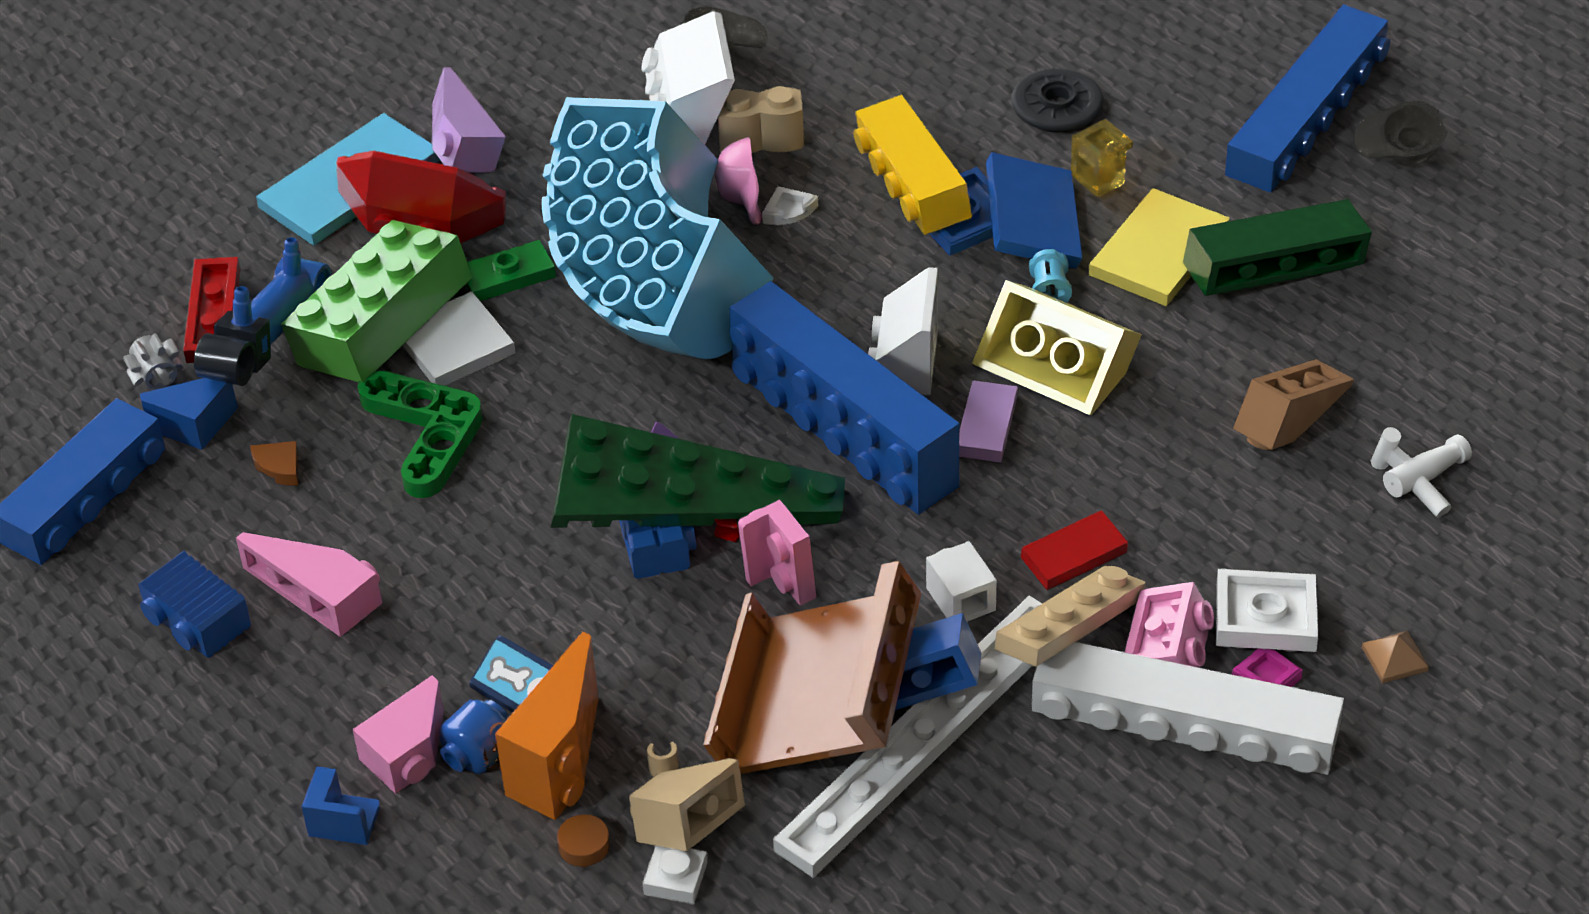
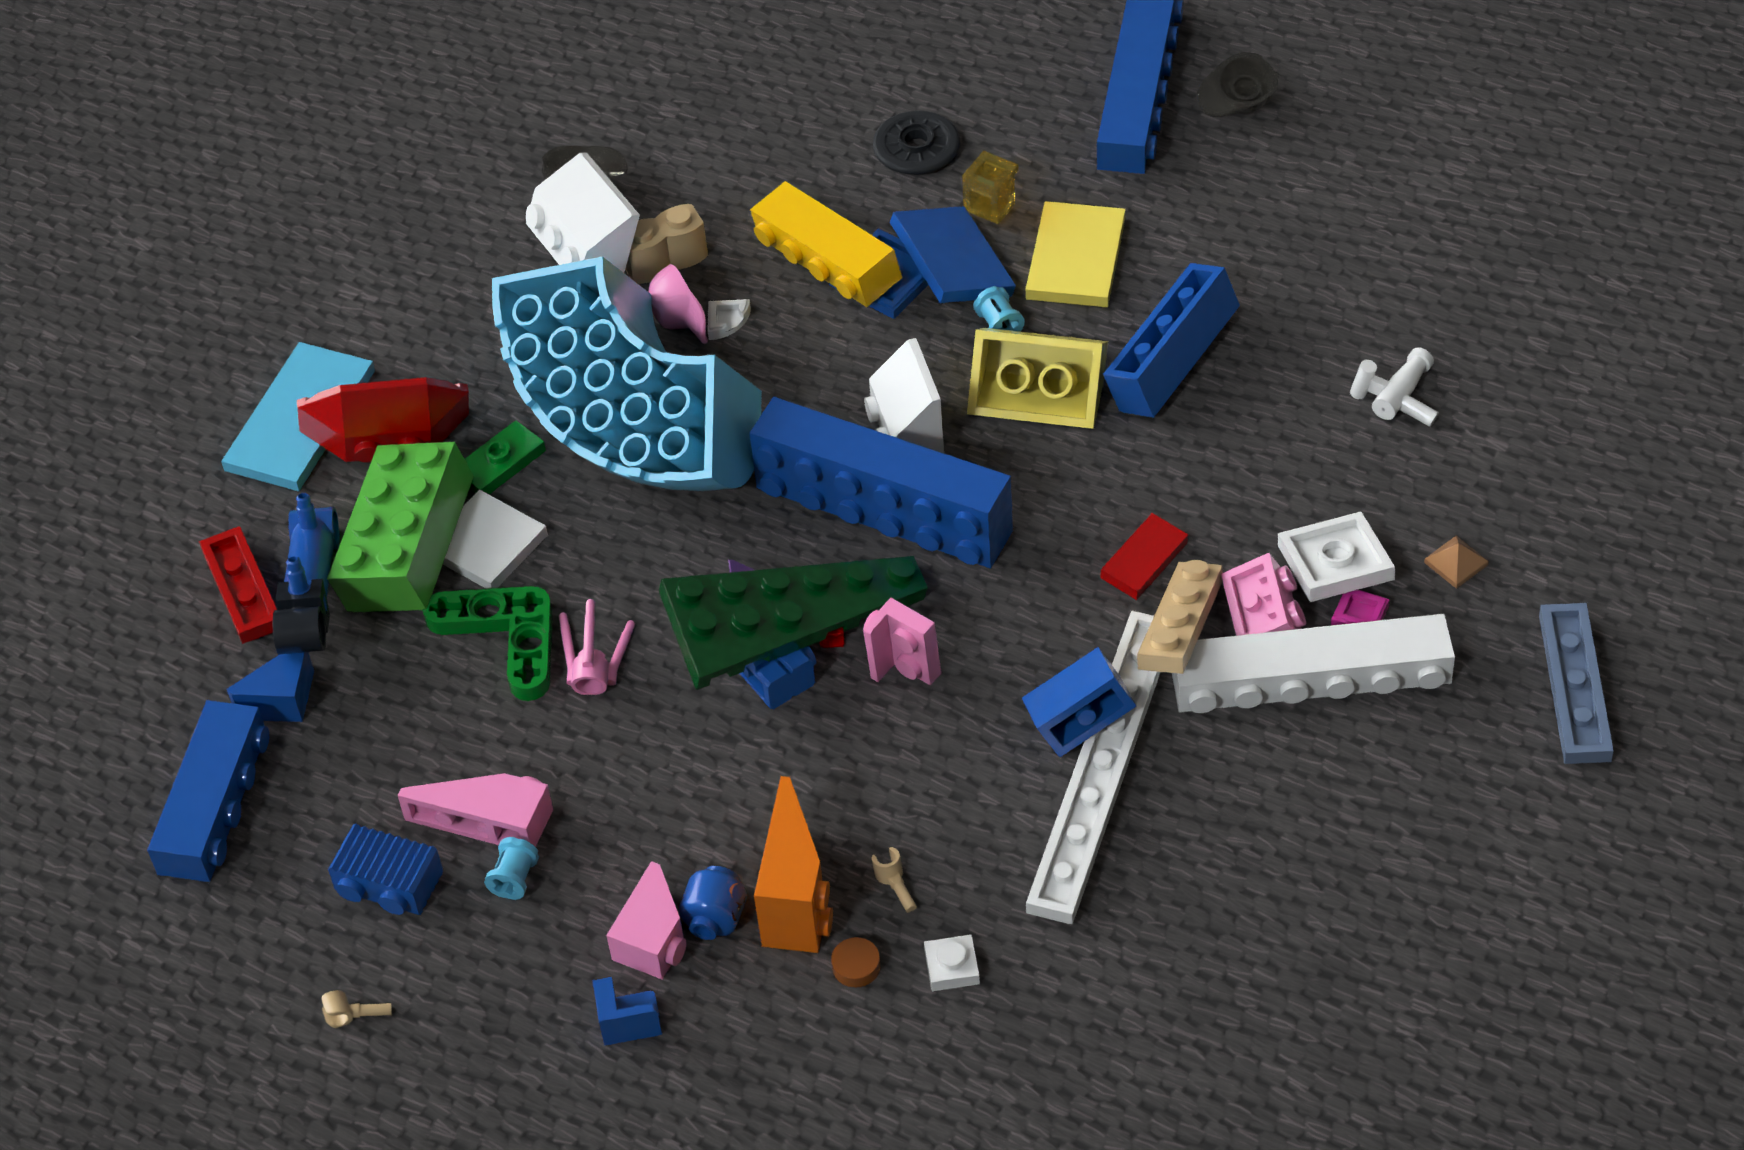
camera: 20 degrees left, 5 degrees up
(86, 719) = (340, 1013): none -> tan hand
(153, 362) = (215, 653): light grey gear -> none
(277, 461) = (383, 709): dark orange tile -> none
(309, 641) = (512, 868): none -> medium azure bush
(462, 129) = (384, 333): lavender slope -> none
(483, 481) = (590, 670): none -> bright pink plant
(508, 673) = (722, 838): slope -> none
(686, 804) = (934, 899): tan slope -> none
(814, 678) = (992, 748): panel -> none
(961, 582) = (1066, 619): white brick -> none
(987, 421) = (1008, 453): lavender tile -> none
(1205, 351) = (1171, 340): none -> blue brick
(1276, 247) = (1182, 224): dark green brick -> none
(1288, 403) = (1262, 364): medium nougat slope -> none
(1455, 816) = (1575, 683): none -> sand blue plate

